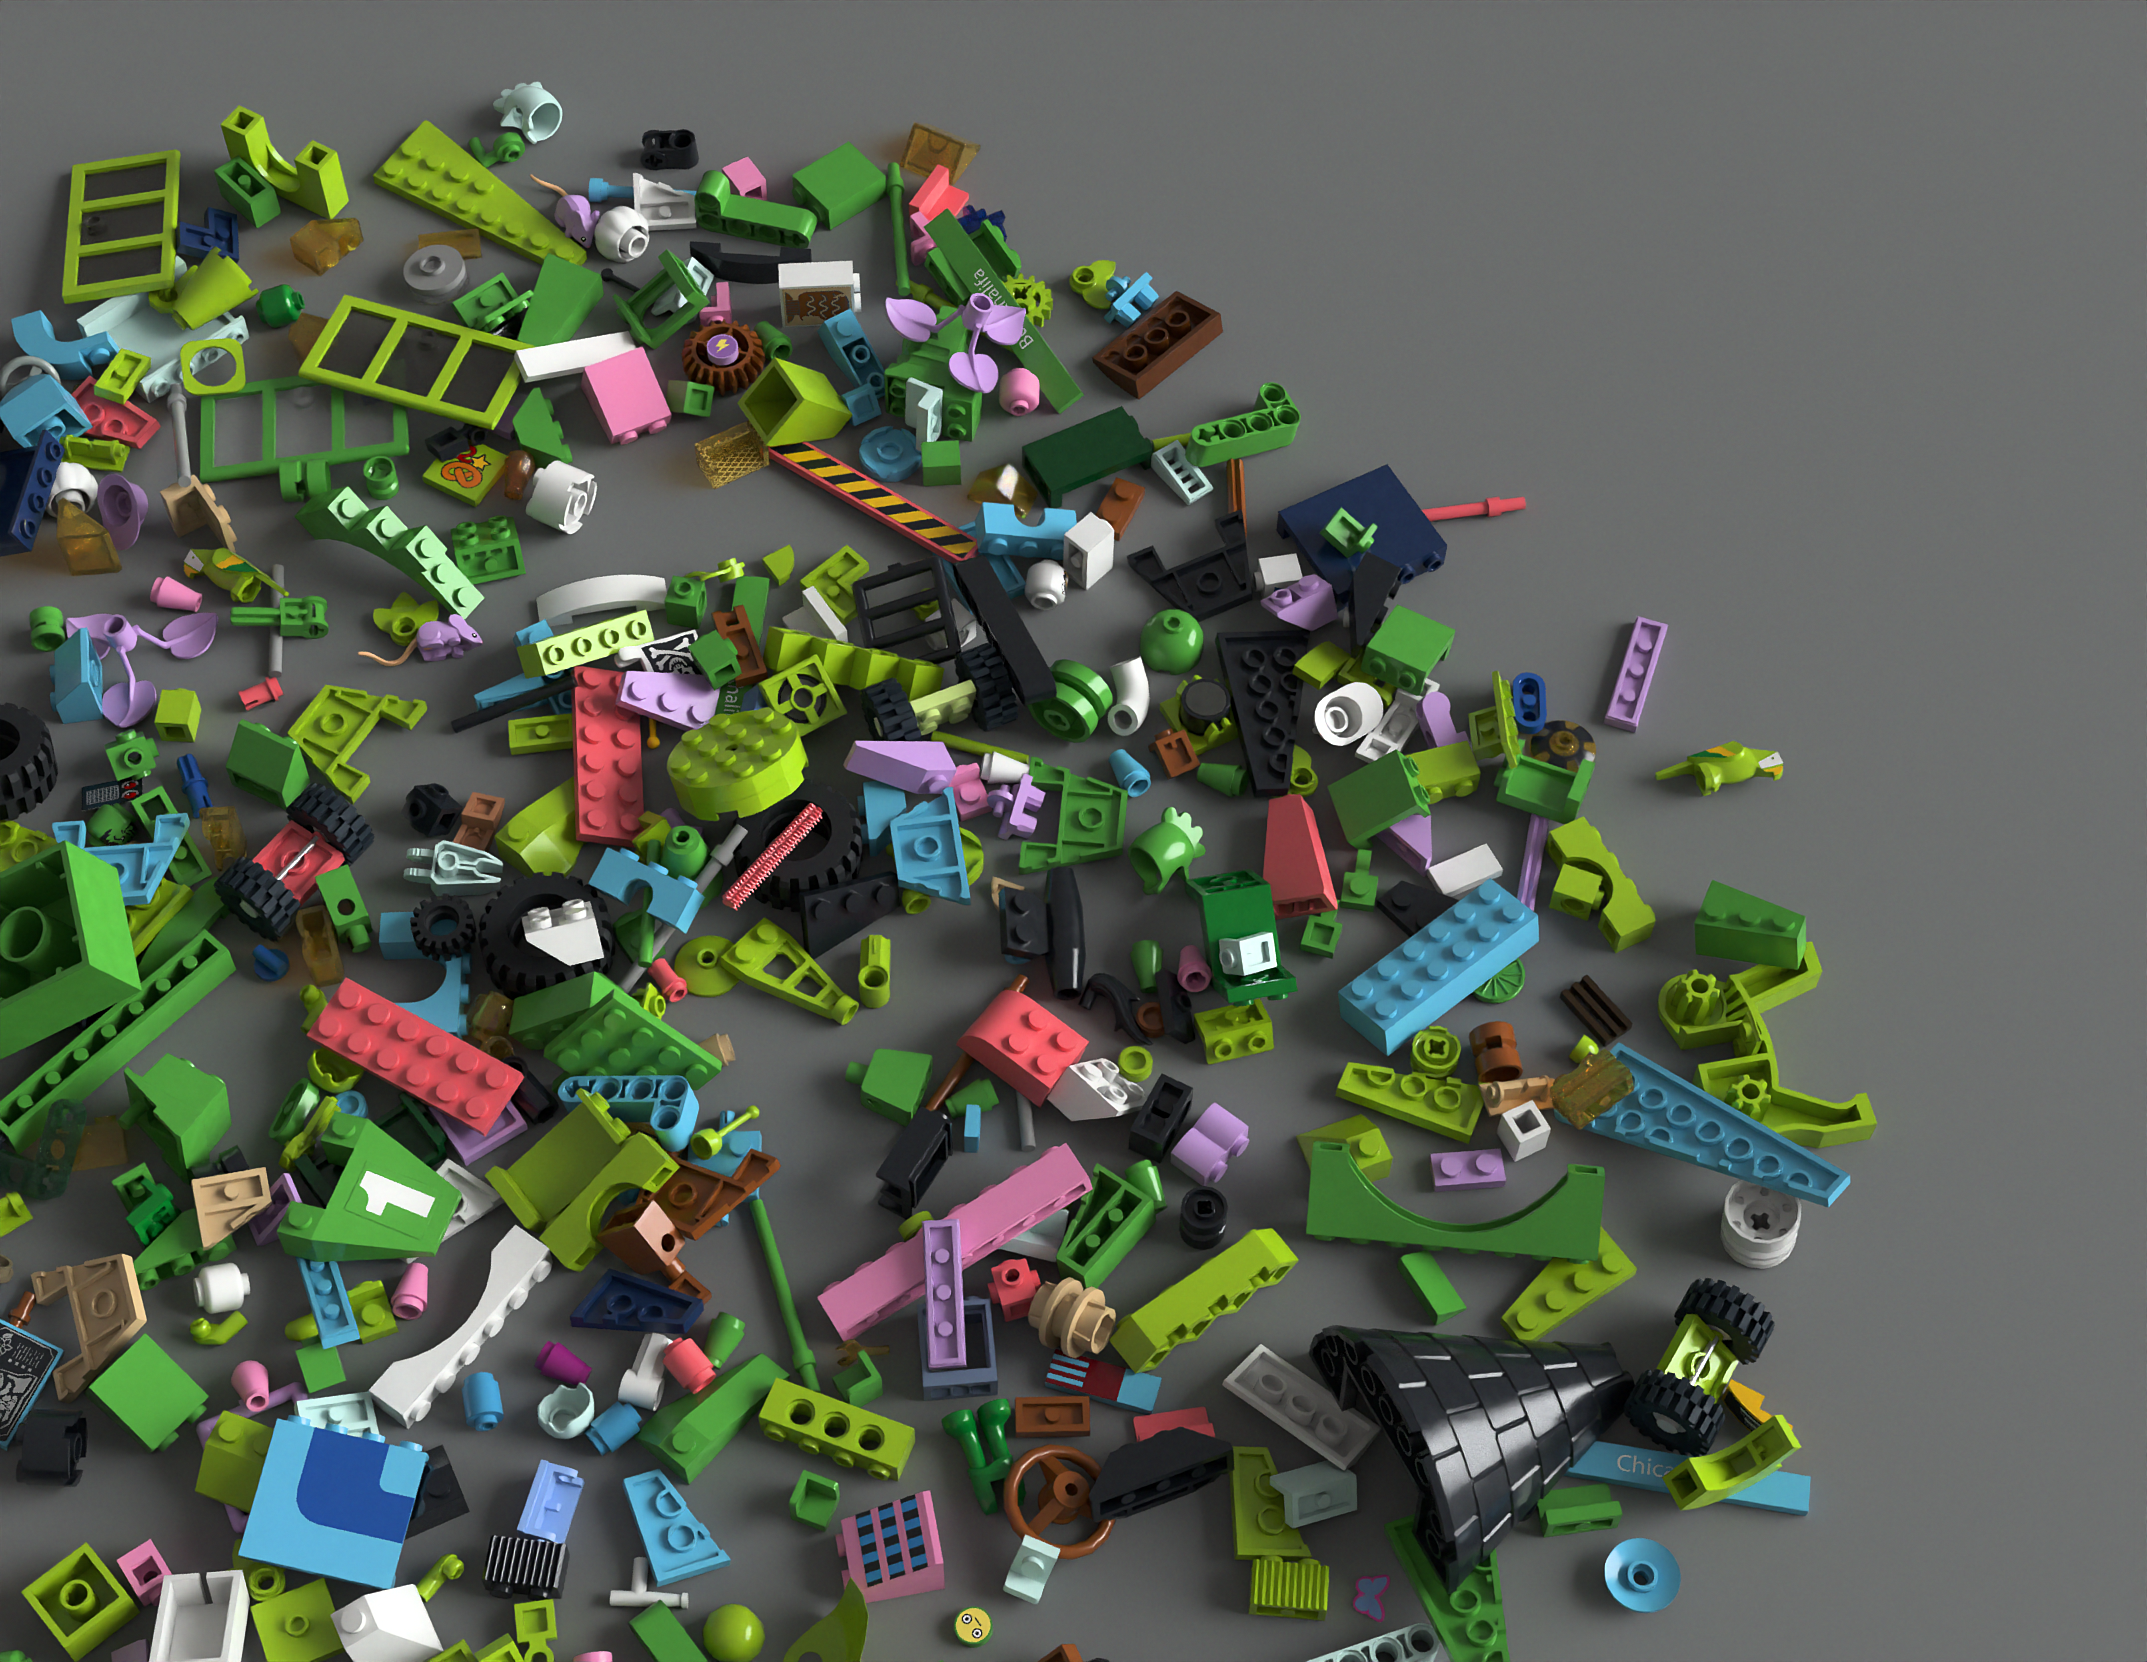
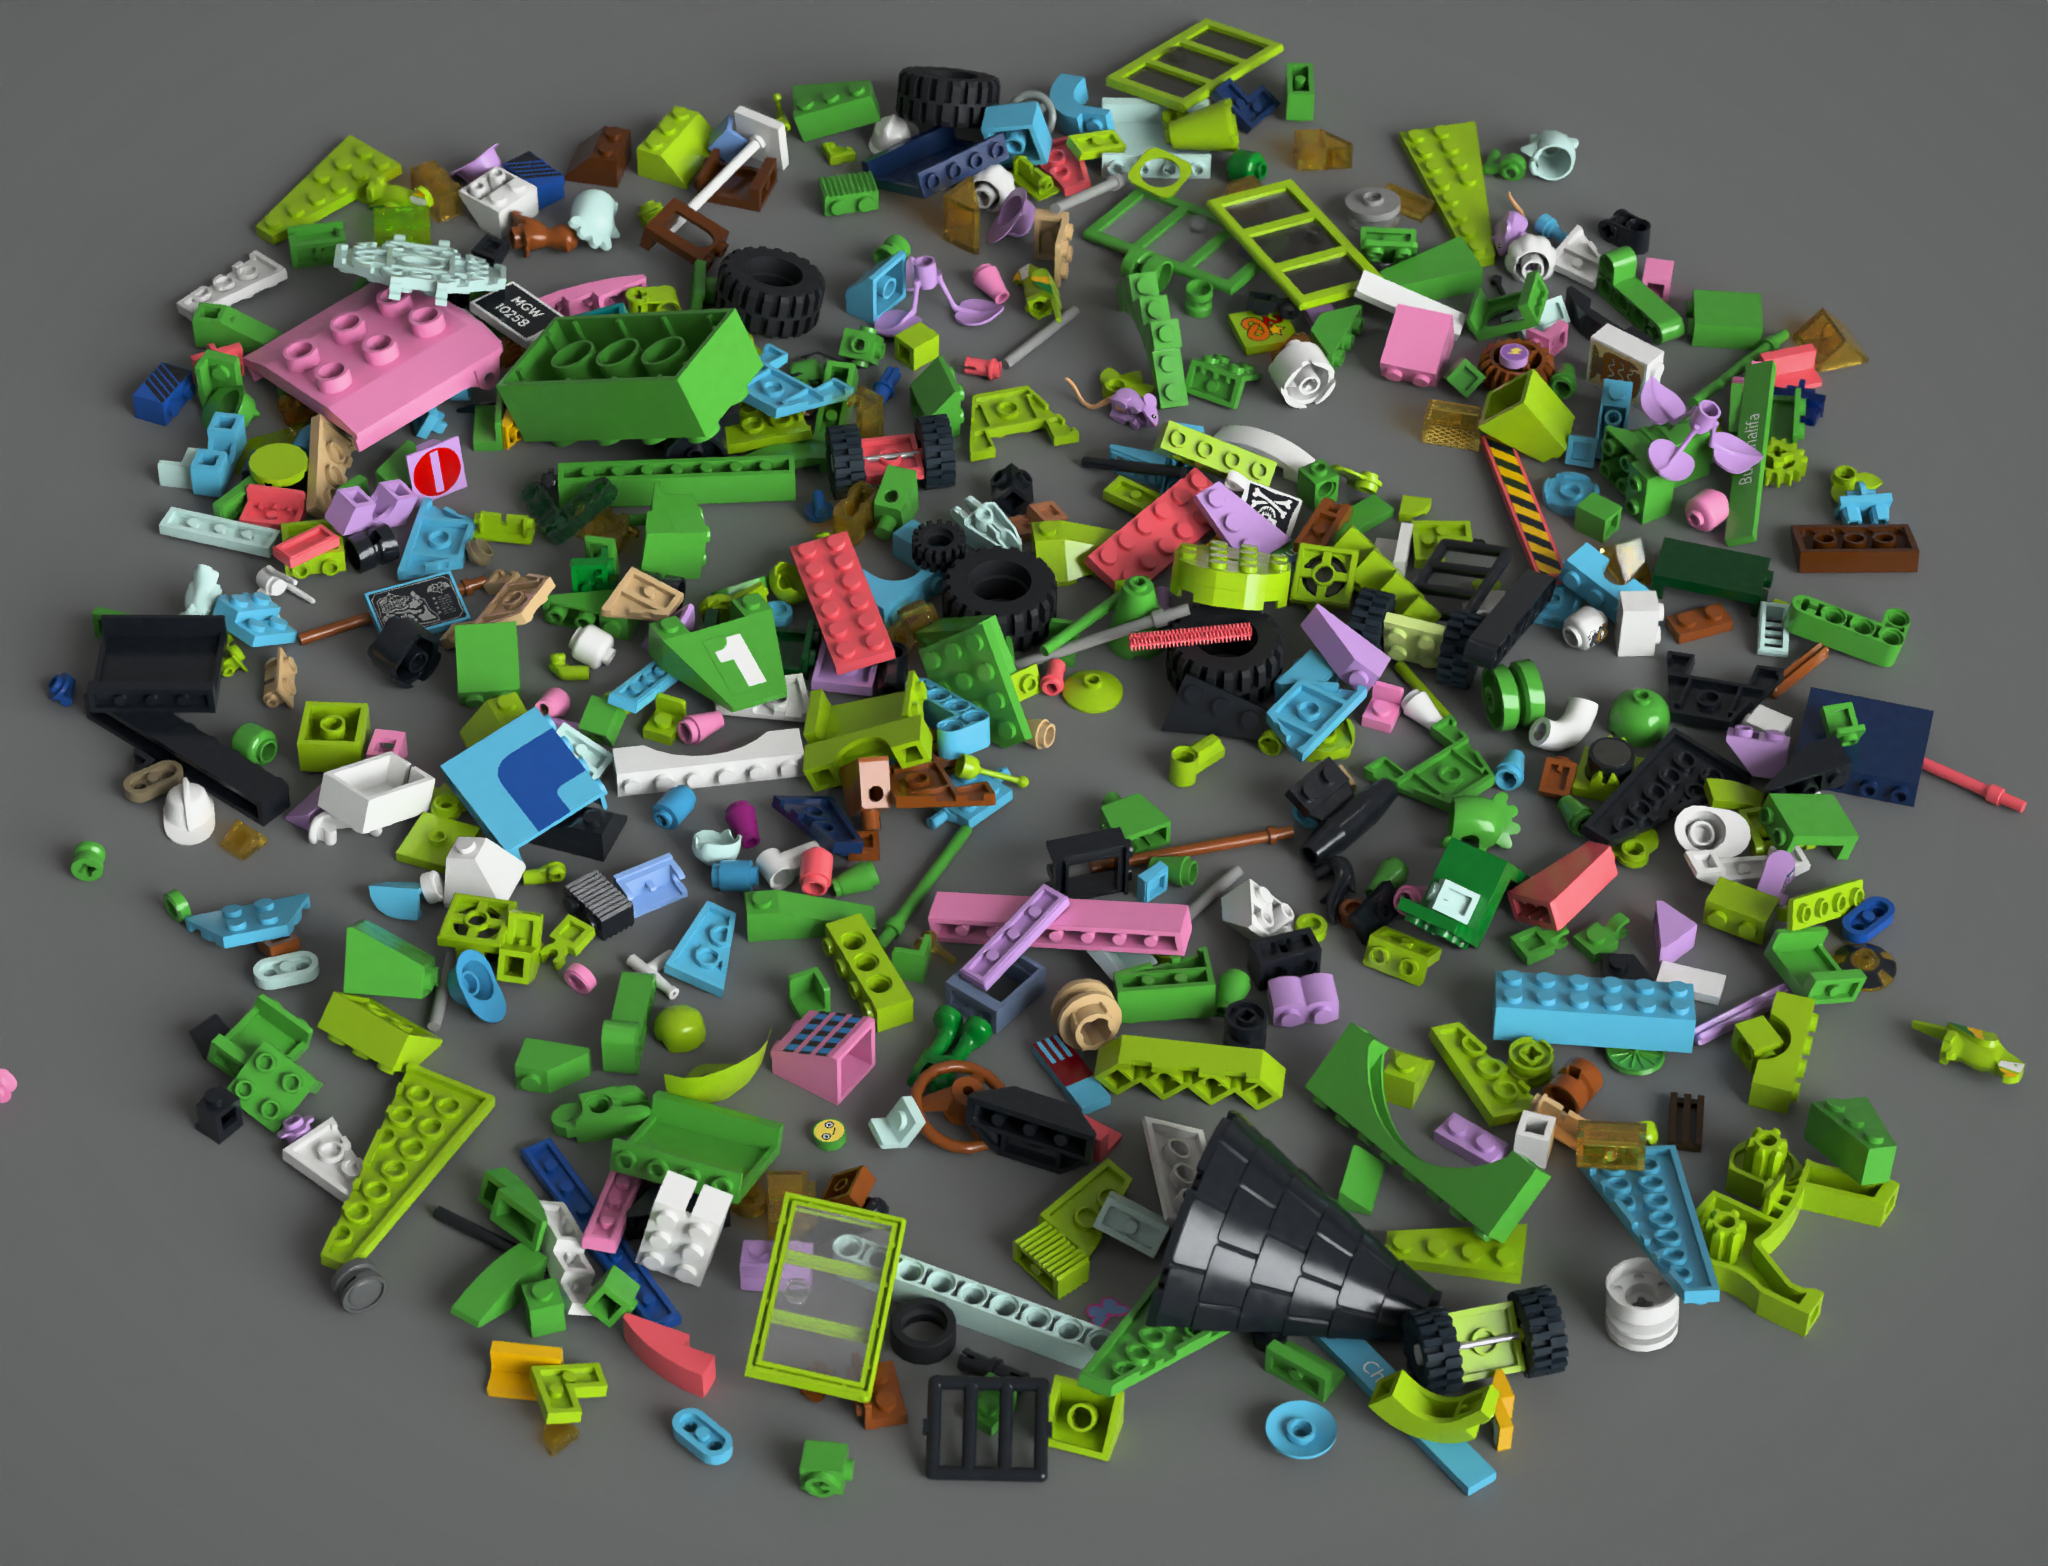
camera: 45 degrees right, 15 degrees down
(292, 616) = (1048, 337): bright green connector -> none
(314, 182) = (1341, 95): lime arch -> none
(565, 932) = (1004, 585): white slope -> none
(673, 900) = (1089, 604): medium azure arch -> none
(715, 658) = (1290, 517): bright green brick -> none
(761, 946) = (1135, 699): lime plate -> none
(923, 410) = (1613, 471): light aqua panel -> none
(1013, 1288) = (1066, 969): coral brick -> none
(1021, 796) = (1401, 731): lavender hips -> none
(1023, 1044) = (1239, 851): coral brick -> none
(1052, 1416) = (1013, 1064): dark orange plate -> none
(1378, 797) = (1669, 884): bright green panel -> none
(1635, 674) = (1980, 960): lavender tile -> none

